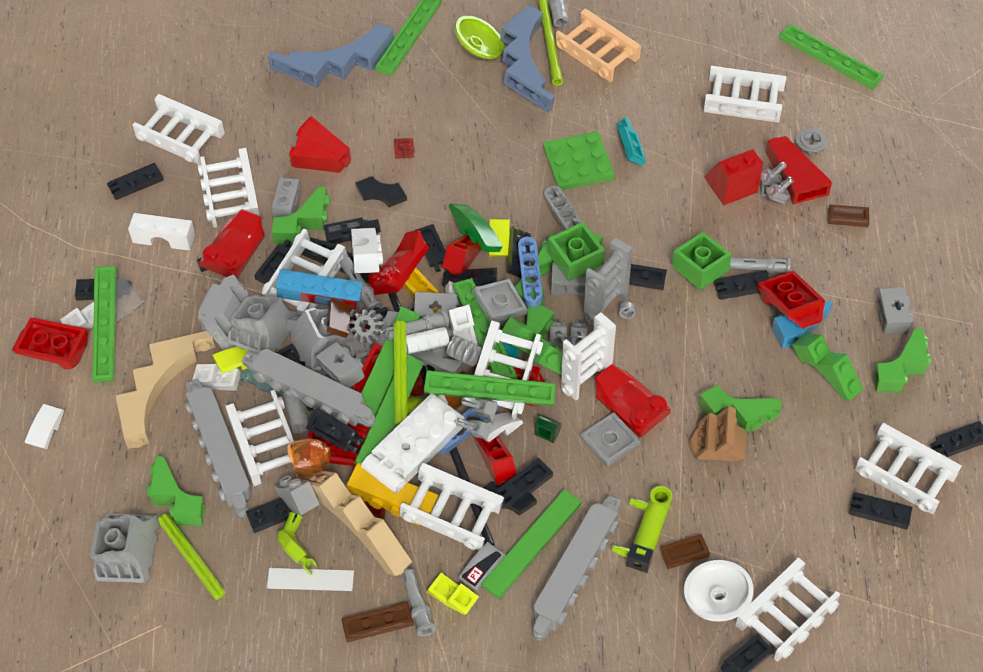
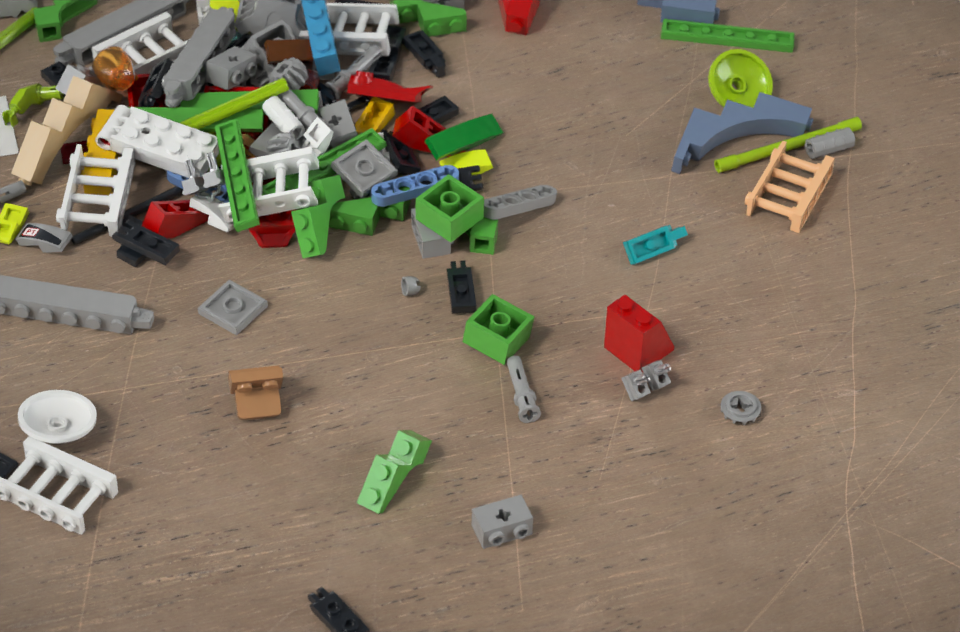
camera: 70 degrees right, 10 degrees down
(366, 250) = (378, 58): white arch -> none
(374, 190) = (491, 58): black tile -> none
(404, 148) = (556, 65): clear red brick -> none
(531, 544) = (83, 271): bright green tile -> none
(547, 428) = (227, 251): dark green brick -> none
(559, 329) = (354, 239): light grey piece -> none
(578, 160) = (608, 208): bright green plate -> none
(588, 356) = (324, 239): white fence -> none
(609, 281) = (432, 234): light grey fence -> none
(630, 400) = (289, 312): red slope -> none
(649, 531) = (154, 355): lime piece -> none
(684, 551) = (109, 392): reddish brown tile -> none
(740, 284) = (489, 382): black hinge -> none
(742, 107) = (763, 341): white fence -> none
(749, 412) = (300, 409): bright green arch -> none
(788, 331) = (448, 437): dark azure slope -> none
(793, 298) = (468, 412): red slope -> none
(808, 178) = (679, 397): red slope -> none
(831, 56) = (896, 408): bright green tile -> none
(848, 215) = (639, 463): reddish brown tile -> none
(880, 510) = (212, 556): black hinge -> none
(913, 360) = (435, 547): bright green arch -> none
(917, 452) = (292, 582): white fence -> none

